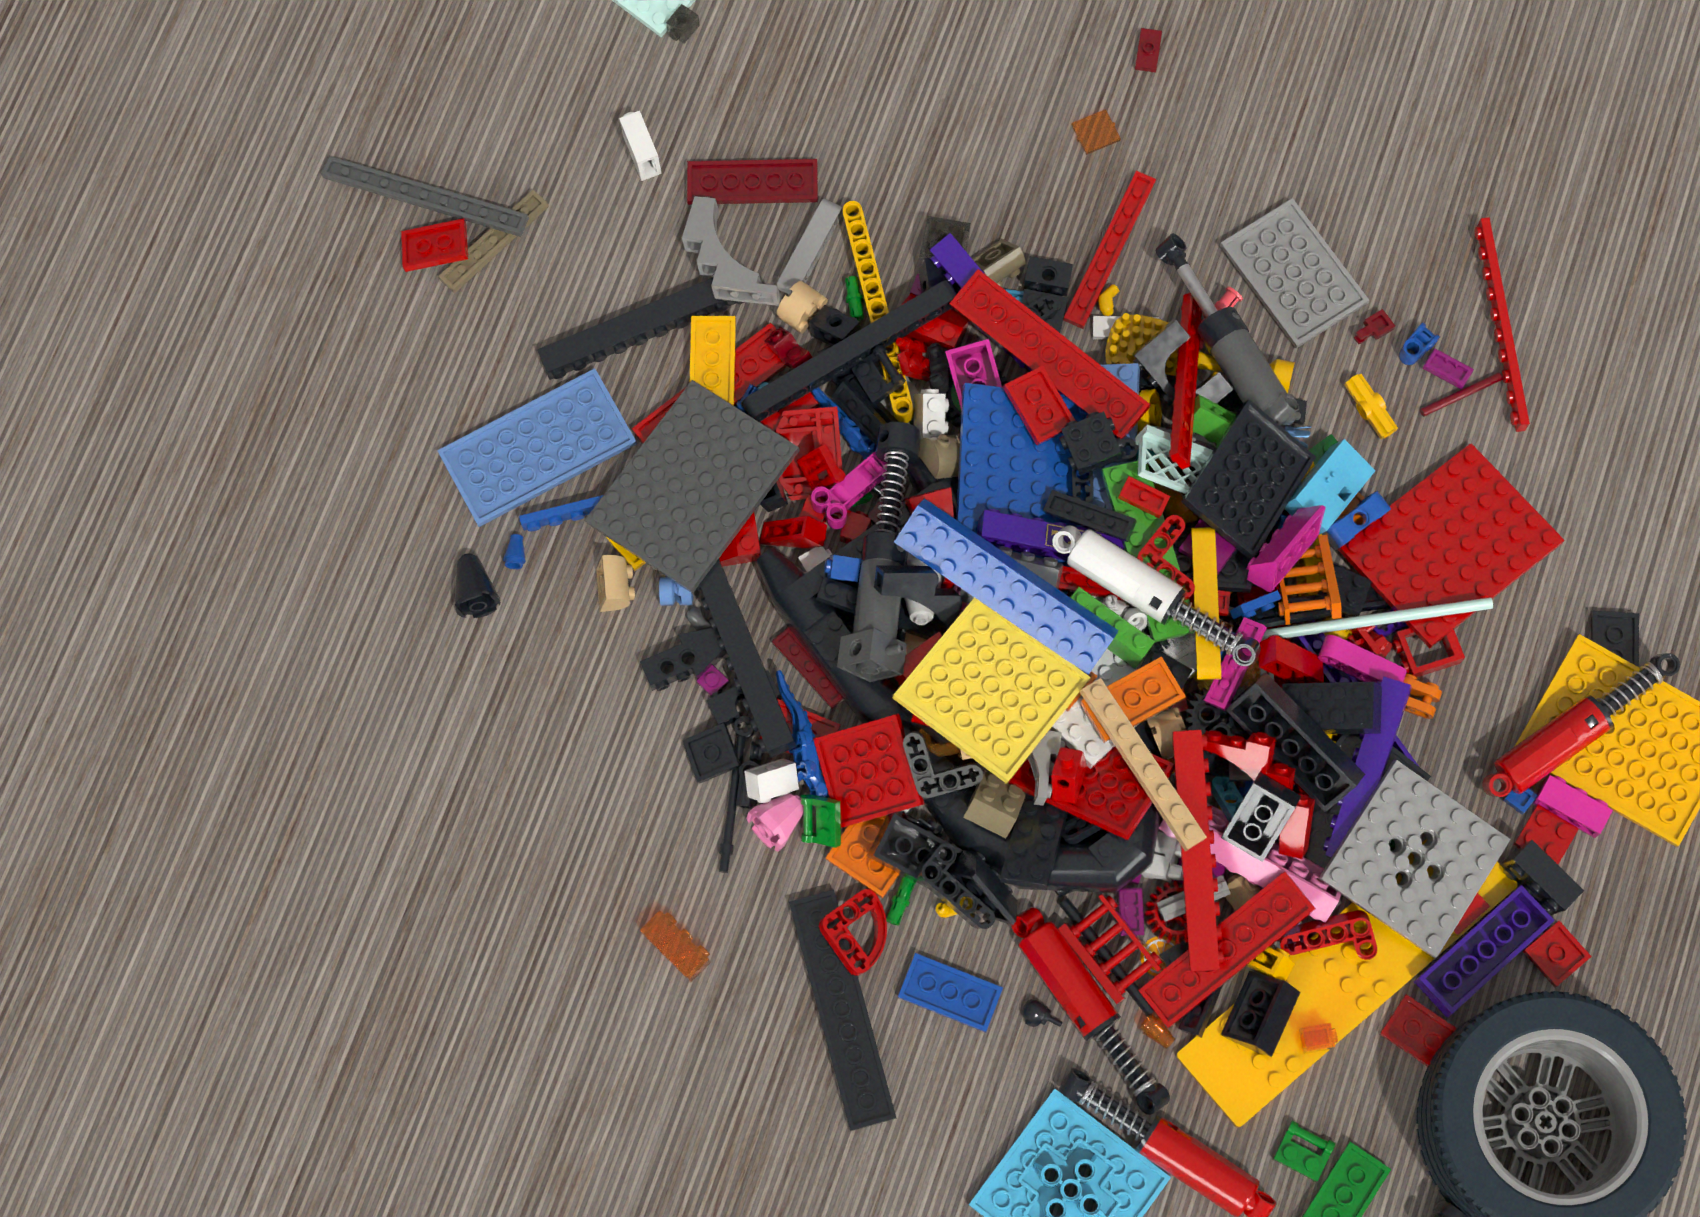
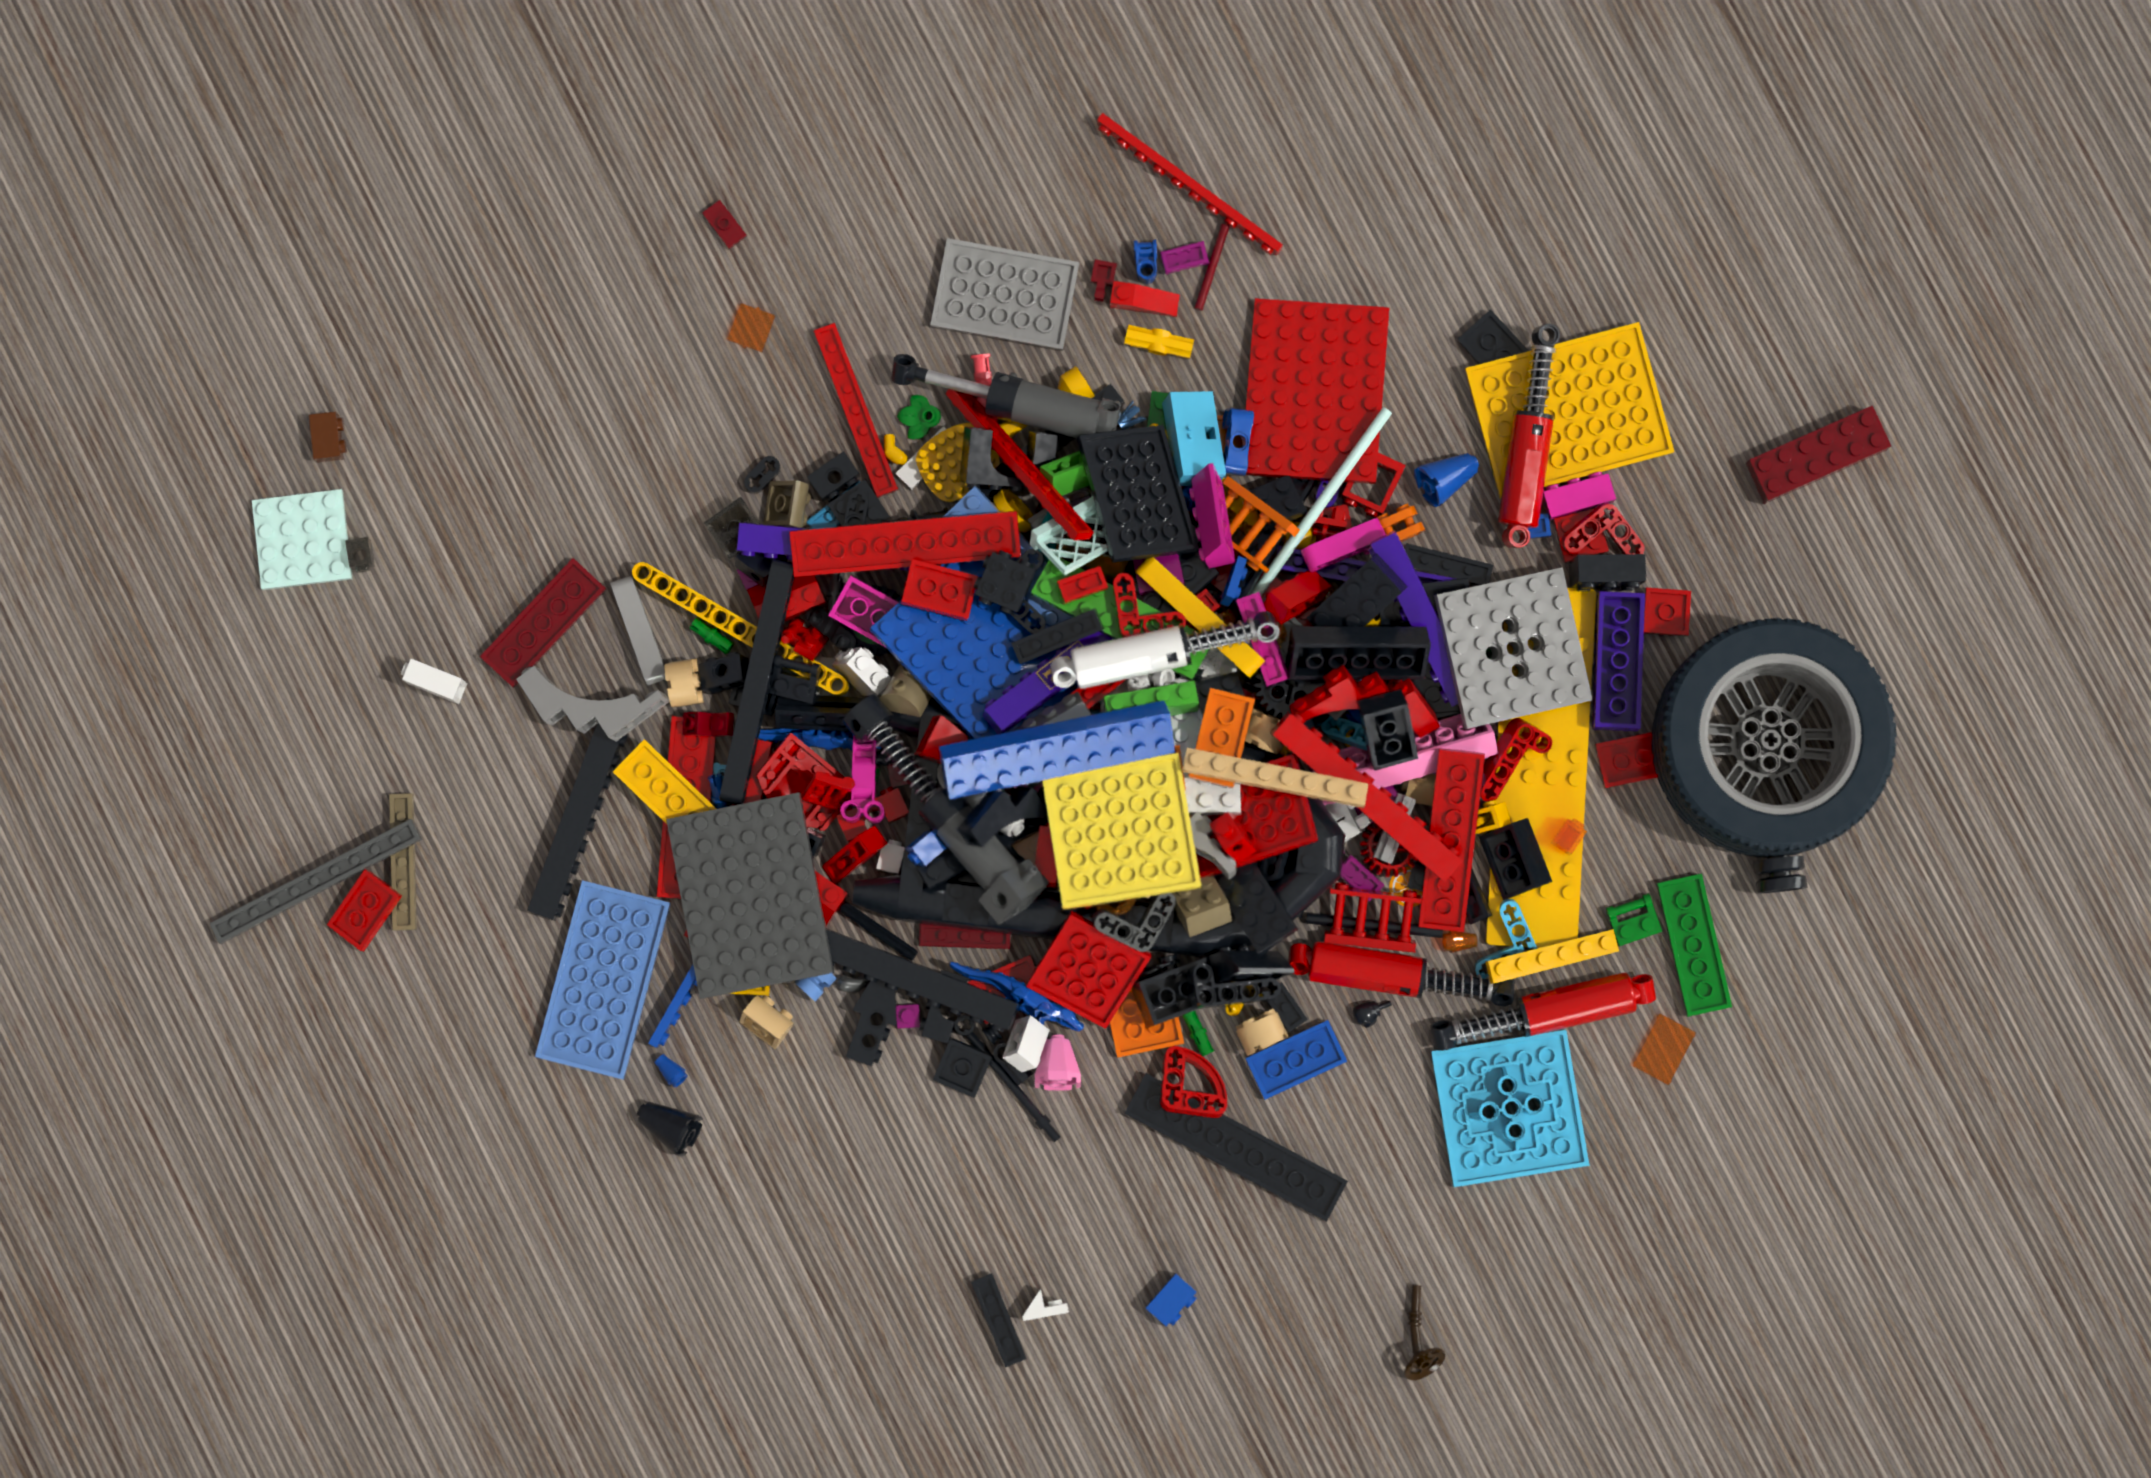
camera: 50 degrees left, 10 degrees up
(547, 954) = (998, 1320): none -> black plate
(582, 973) = (1037, 1308): none -> white slope
(676, 945) = (1079, 1222): clear orange brick -> none
(680, 1069) = (1171, 1300): none -> blue brick
(754, 603) = (878, 931): none -> black axle
(827, 821) = (1093, 1031): green plate -> none
(945, 945) = (1261, 1033): none -> tan brick
(981, 949) = (1287, 1009): none -> black plate
(1001, 230) = (758, 470): none -> black beam
(1147, 293) = (916, 417): none -> green plate
(1191, 1079) = (1513, 949): none -> medium azure beam
(1215, 1112) = (1552, 956): none -> yellow plate
(1389, 367) = (1143, 299): none -> red slope
(1424, 755) = (1448, 565): none -> black plate
(1475, 909) = (1585, 638): red sticker -> none
(1486, 694) = (1445, 477): none -> blue cone
(1576, 847) = (1609, 525): none -> red beam

